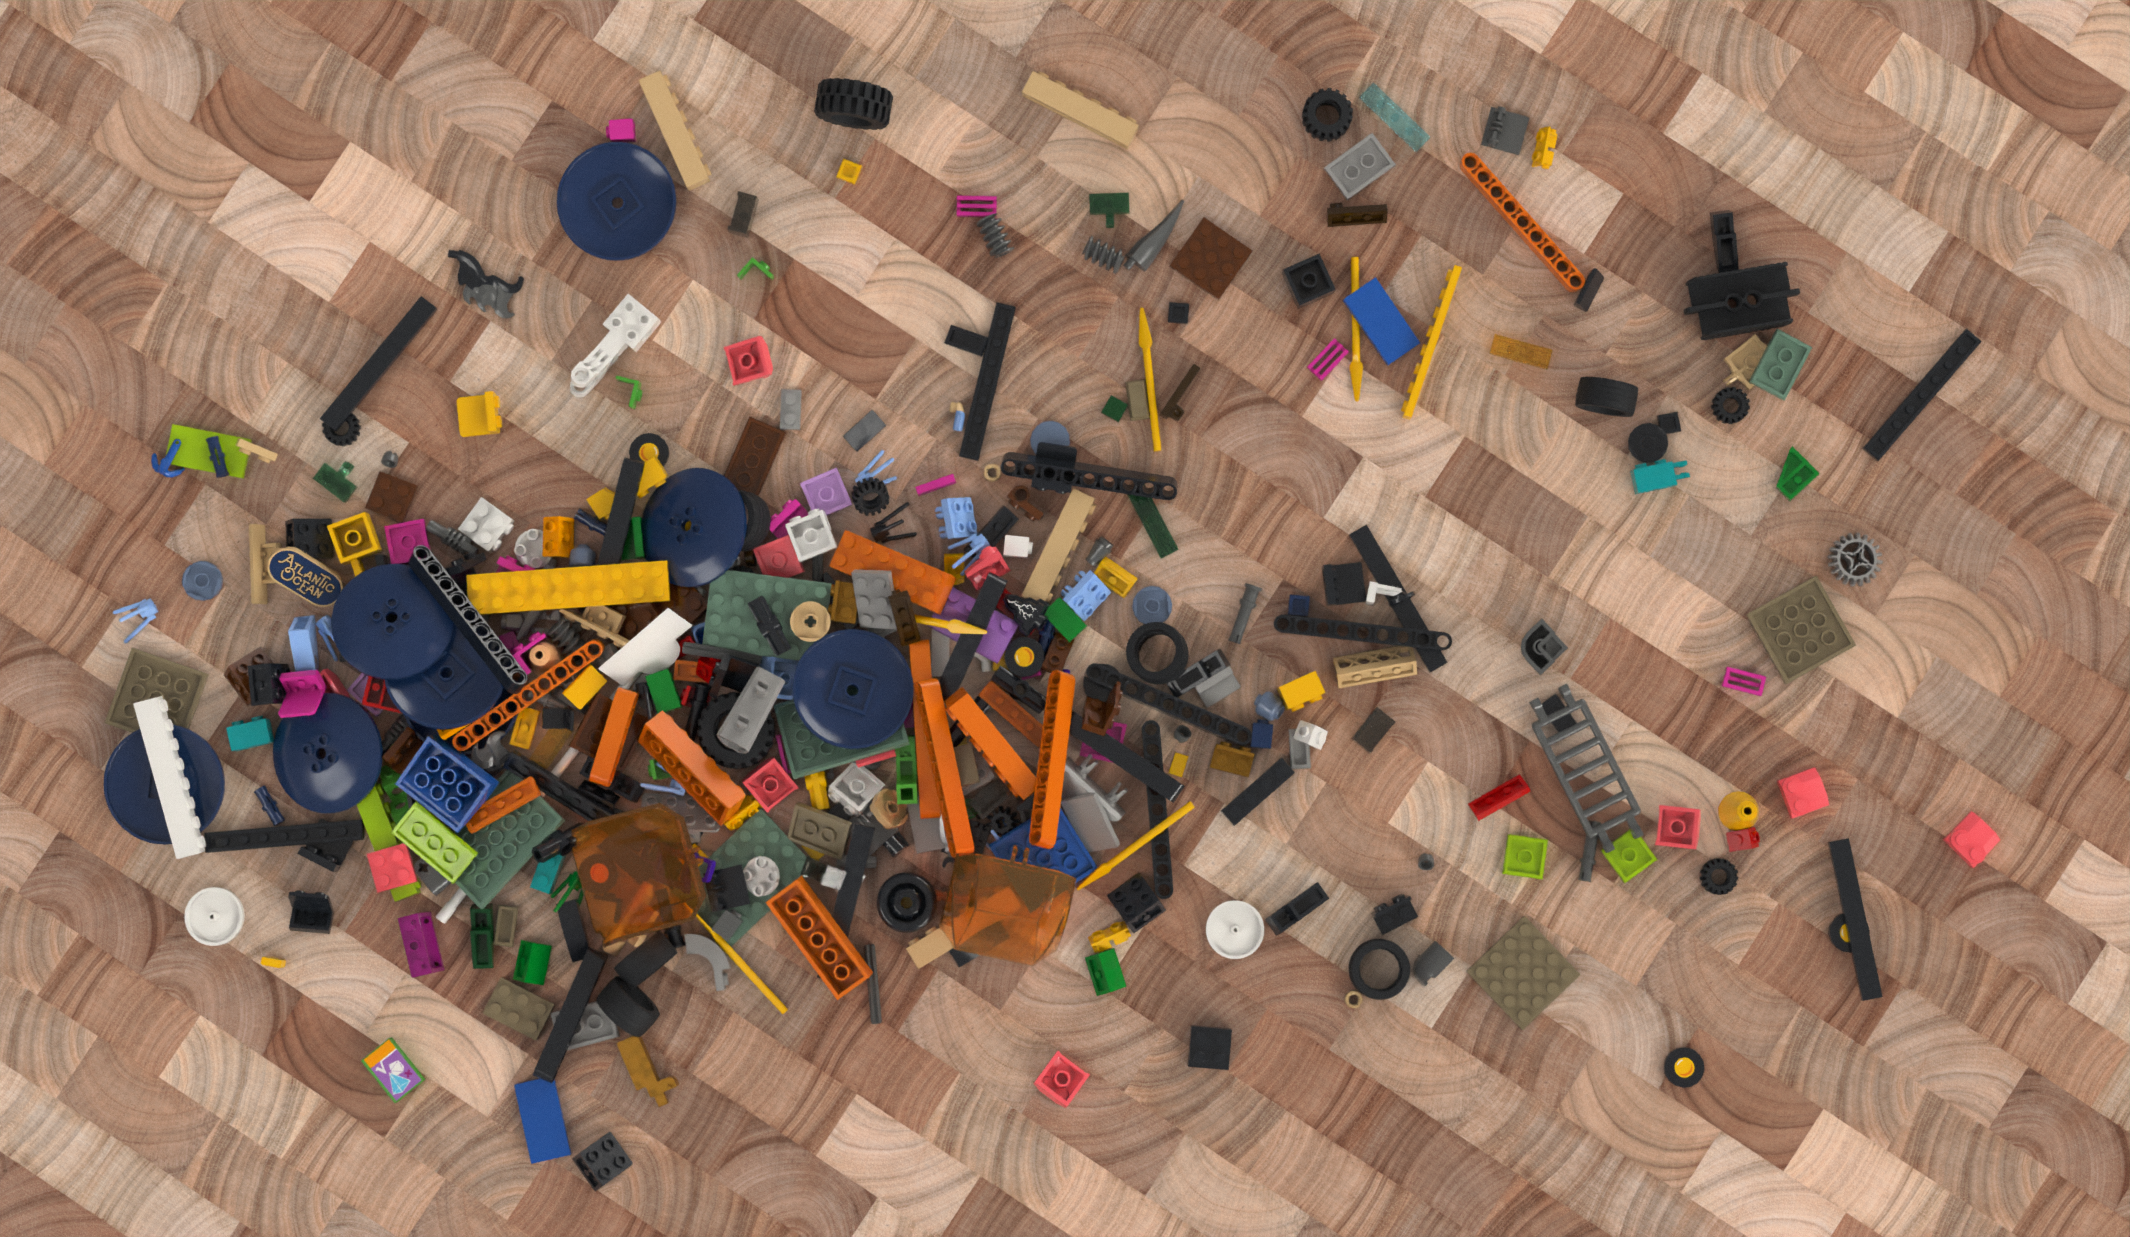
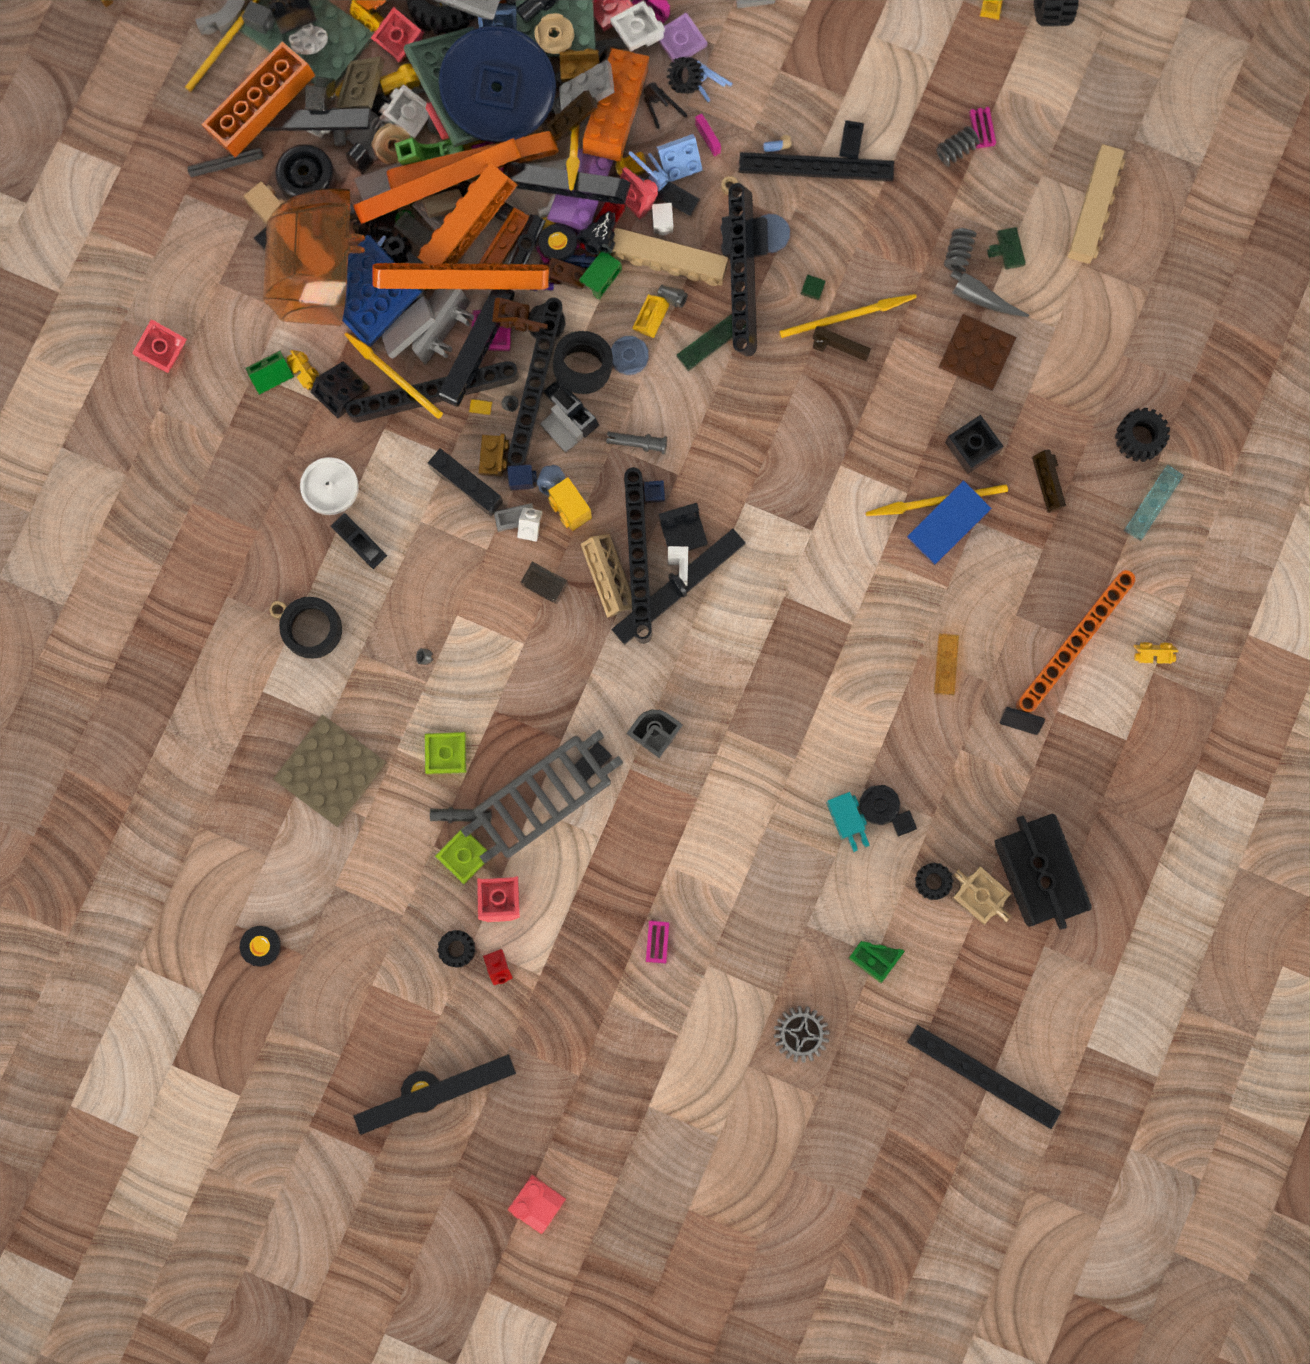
camera: 80 degrees right, 5 degrees down
(864, 430) = (747, 62): slope -> none
(1030, 511) = (698, 226): reddish brown plate -> none
(1086, 594) = (627, 288): light blue plate -> none
(1137, 400) = (826, 307): dark tan tile -> none
(1178, 313) = (918, 331): black tile -> none
(1209, 1047) = (210, 479): black brick -> none
(1339, 347) = (918, 481): dark pink tile -> none
(1359, 166) = (1097, 476): light grey plate -> none
(1394, 914) = (367, 635): black bracket -> none
(1431, 963) = (324, 675): dark grey brick -> none
(1433, 333) = (944, 575): yellow plate -> none
(1499, 797) = (499, 716): red plate -> none
(1505, 130) = (1164, 611): dark grey hinge -> none
(1606, 396) = (917, 750): black tyre -> none
(1724, 241) = (1100, 846): black slope -> none
(1738, 811) = (534, 961): yellow cone -> none
(1780, 364) = (985, 923): sand green tile -> none
(1800, 629) = (719, 990): dark tan plate -> none
(1803, 792) = (555, 1021): coral slope -> none

